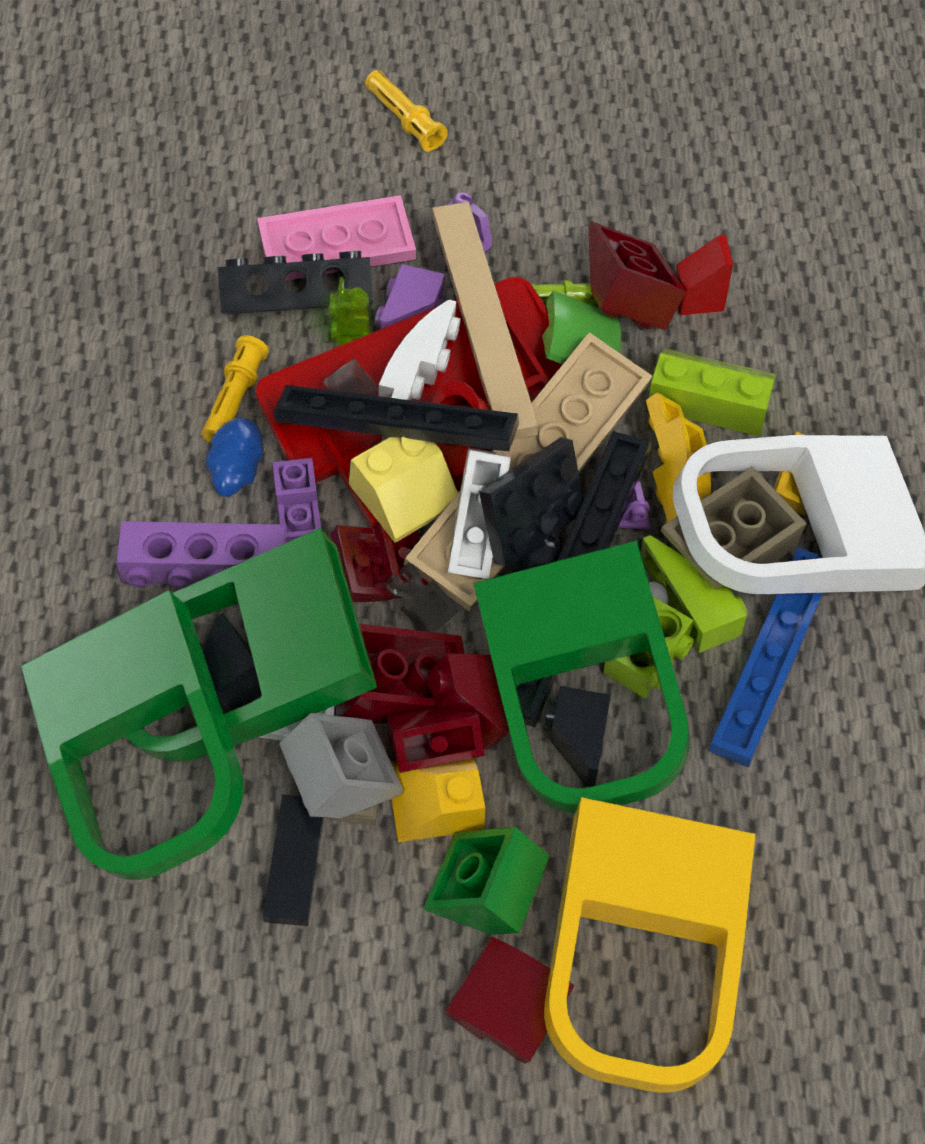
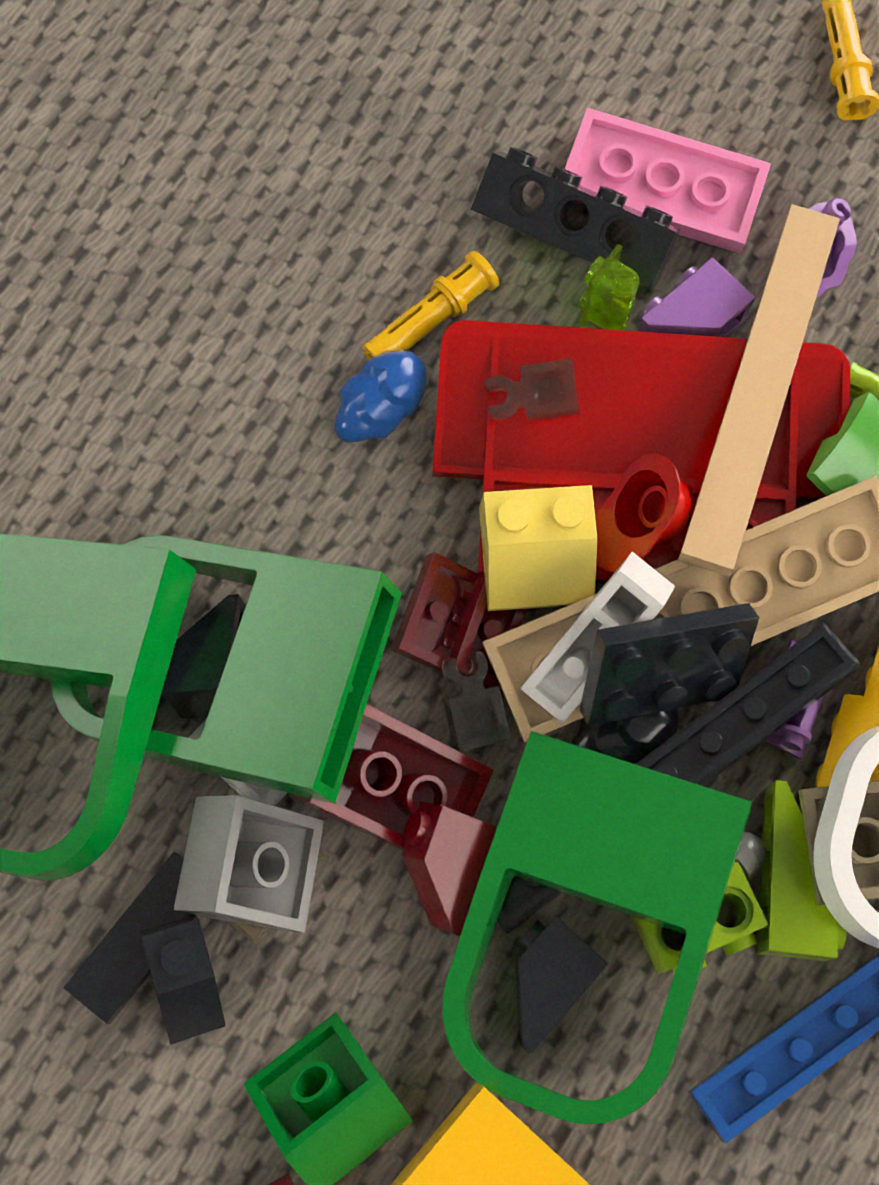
camera: 30 degrees right, 15 degrees up
(184, 543) = (210, 451): medium lavender brick -> none
(296, 497) = (413, 493): medium lavender slope -> none
(342, 857) = (183, 978): none -> black slope
(397, 417) = (572, 472): black tile -> none
(421, 355) = (651, 395): white slope -> none
(434, 737) = (371, 890): dark red slope -> none
(439, 801) = (344, 953): yellow slope -> none

